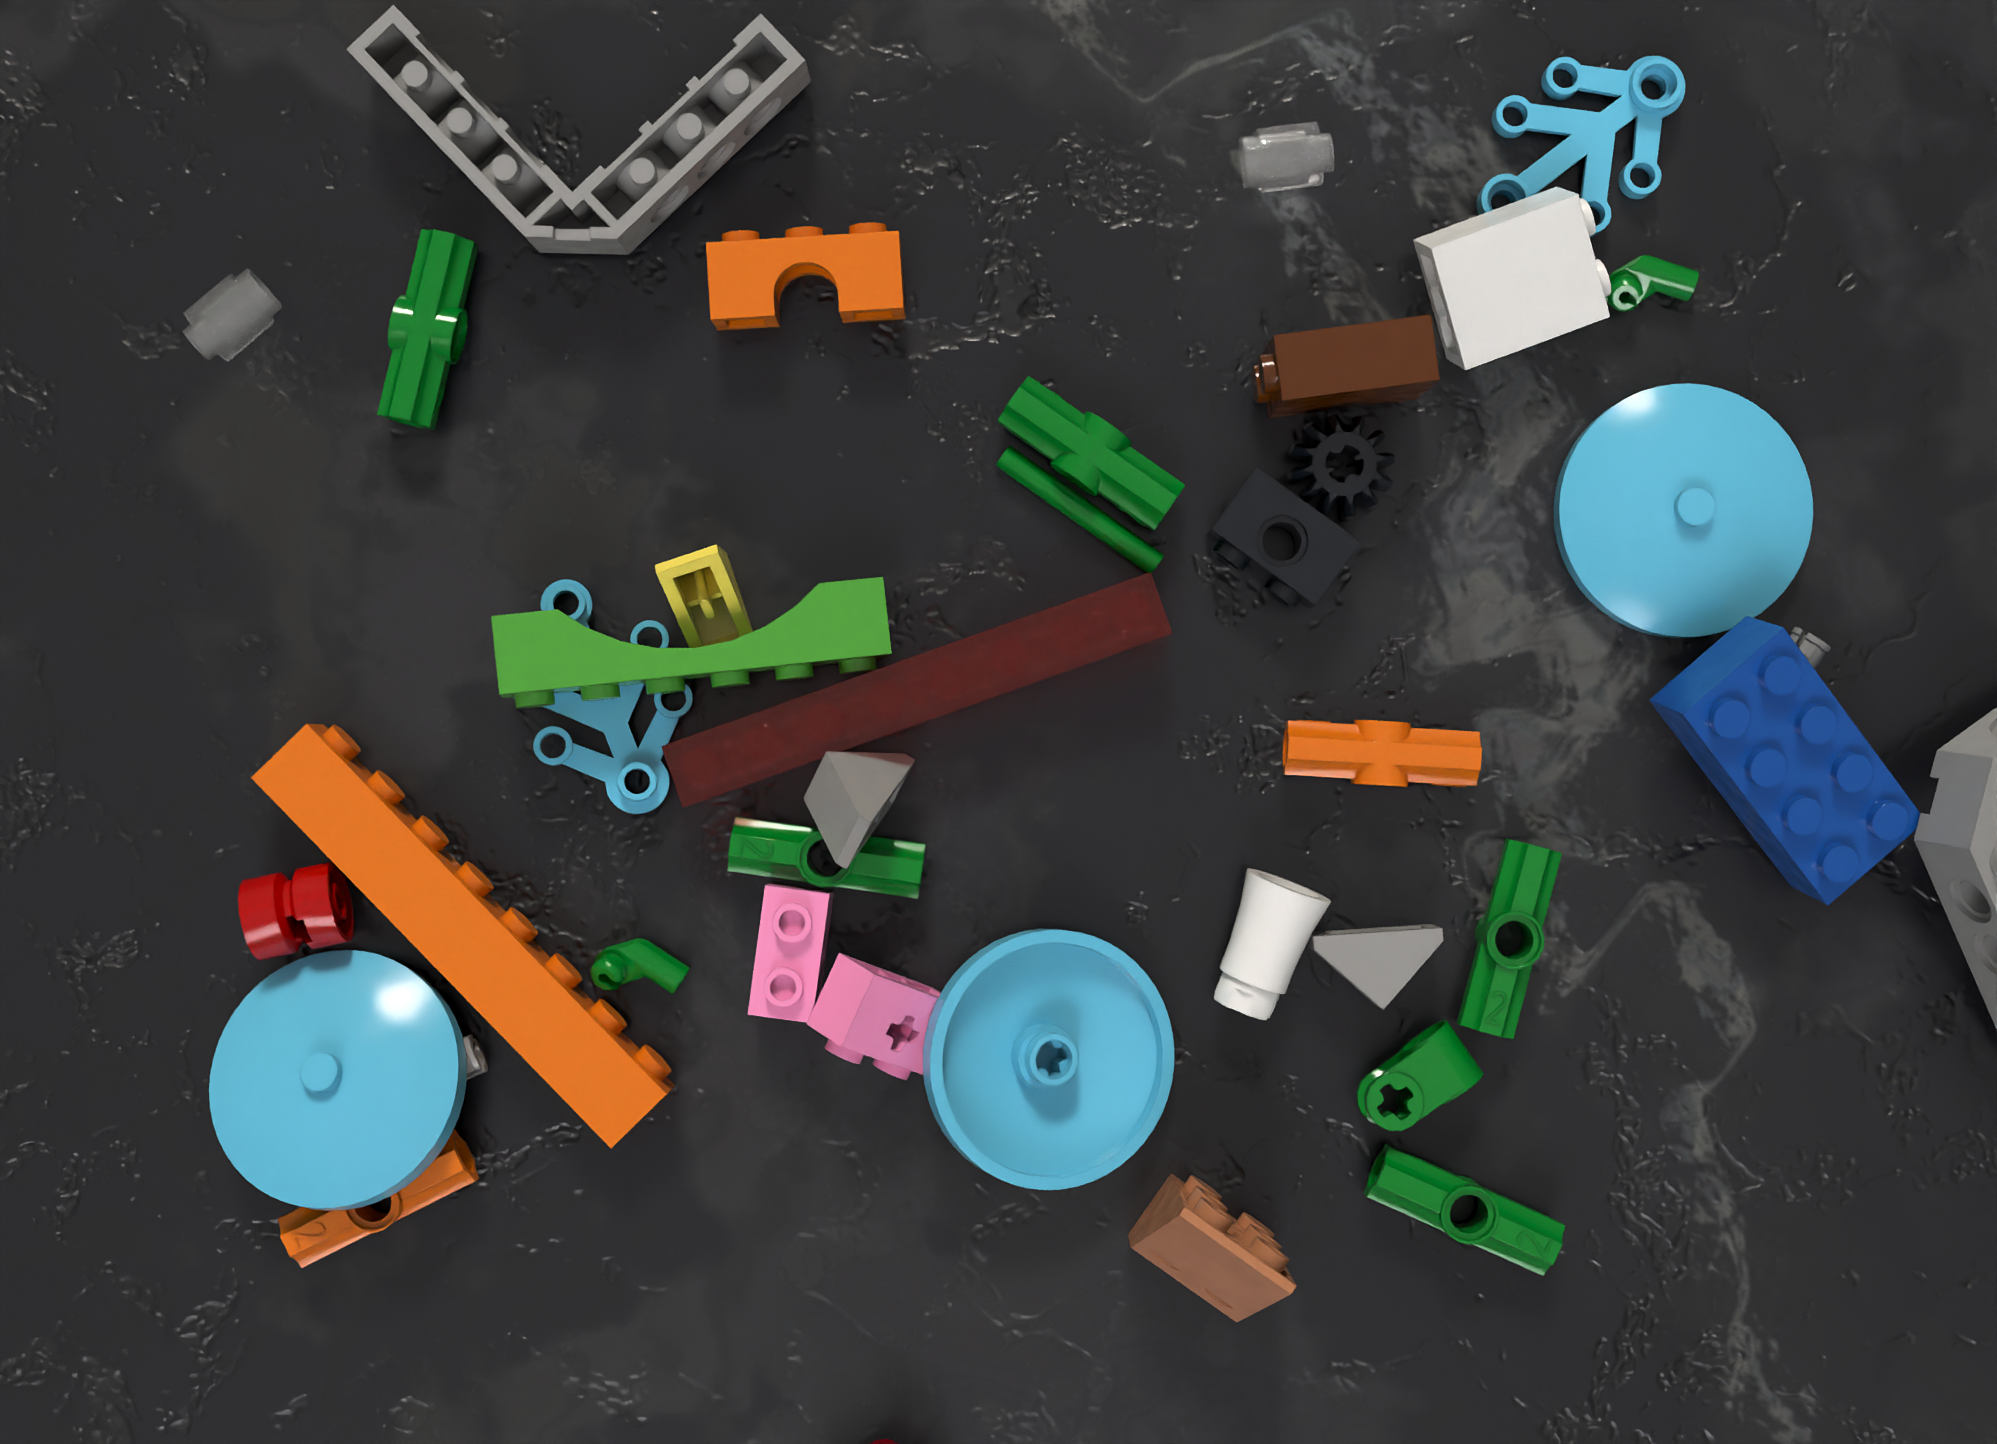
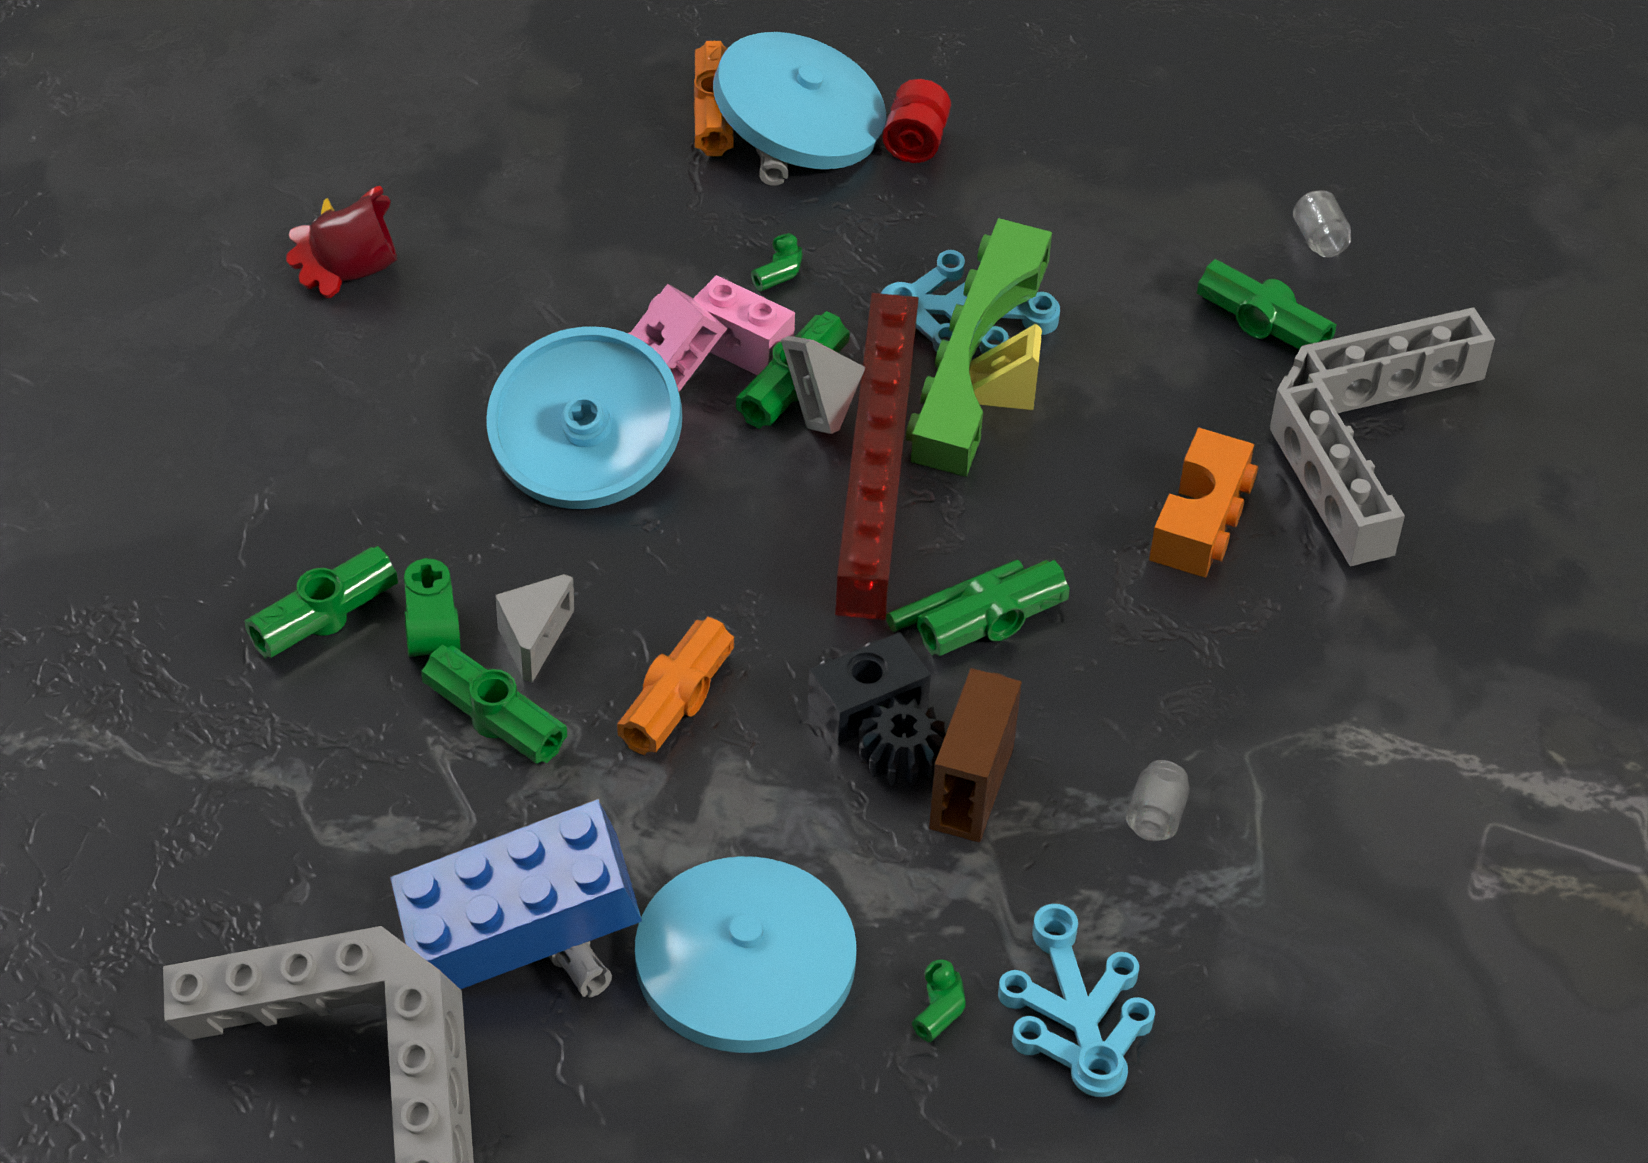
camera: 110 degrees right, 40 degrees down
(464, 930) = (852, 190): orange brick -> none
(1211, 1252) = (401, 440): nougat slope -> none
(1266, 942) = (601, 576): white plant -> none
(1514, 277) = (991, 890): white brick -> none

